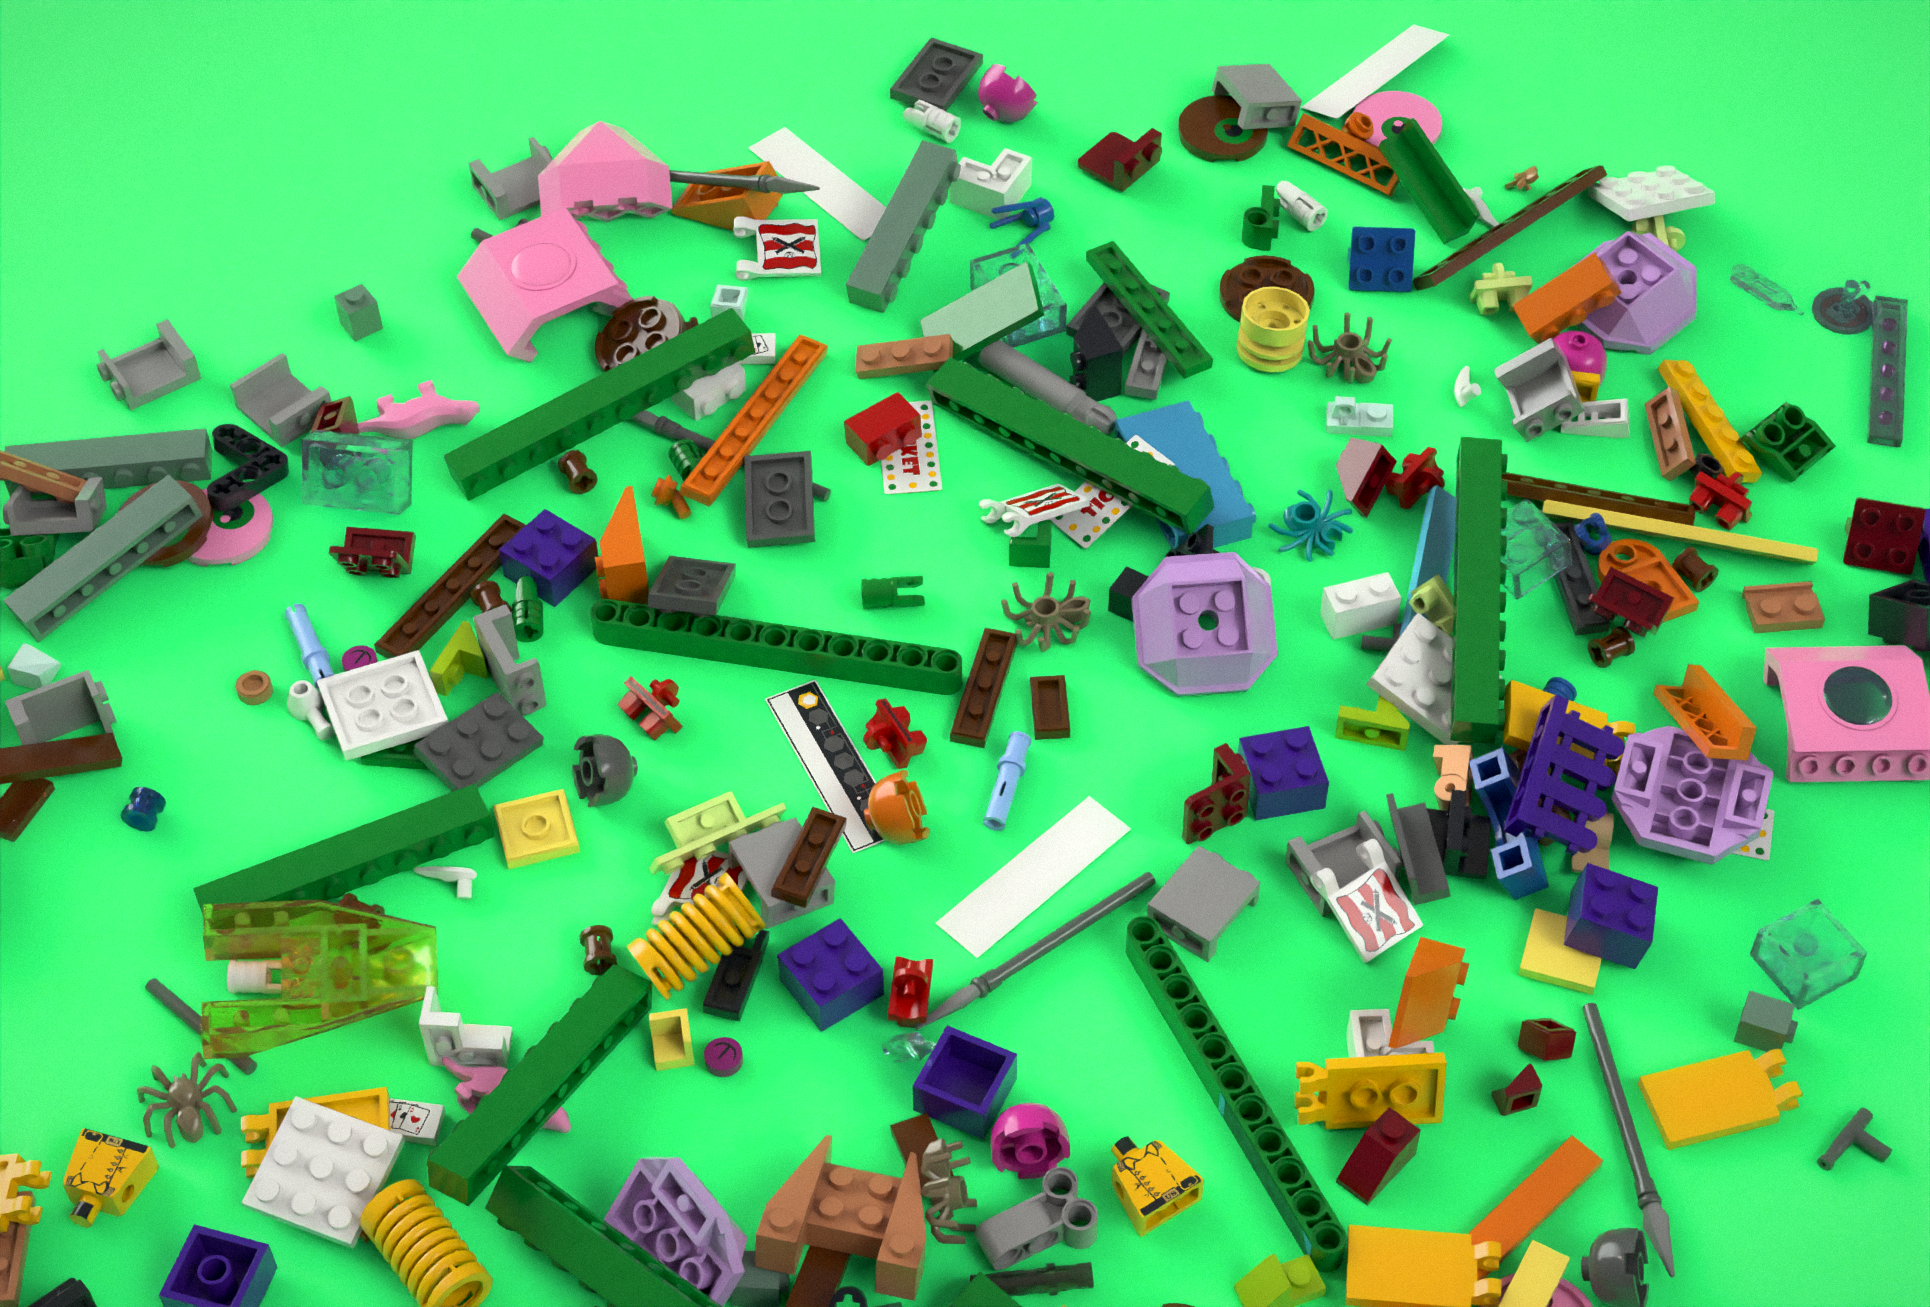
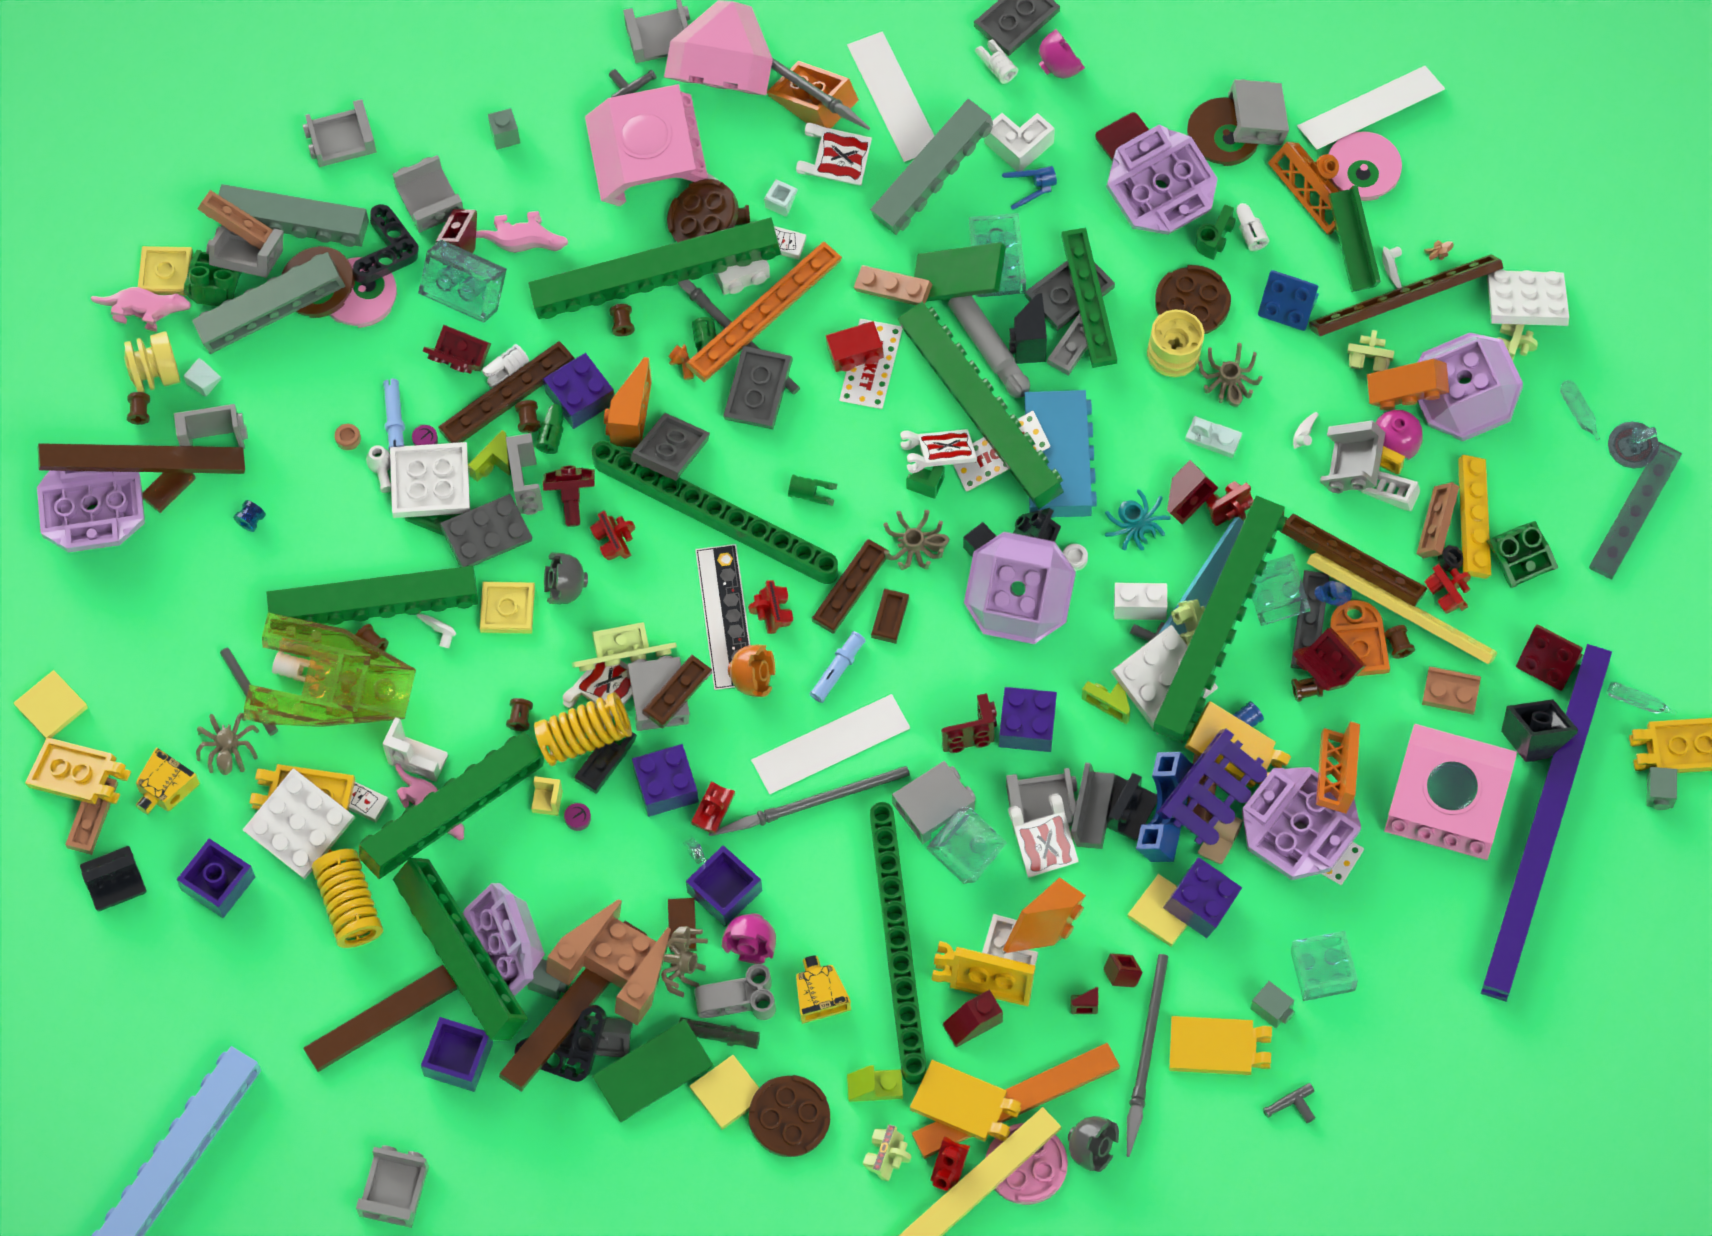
camera: 20 degrees right, 15 degrees up
(443, 554) = (505, 365): none -> white hinge
(577, 669) = (569, 480): none -> dark red piece
(1179, 176) = (1163, 157): none -> lavender piece
(1275, 937) = (966, 845): none -> clear light blue piece
(1455, 772) = (1145, 757): light nougat leg -> none

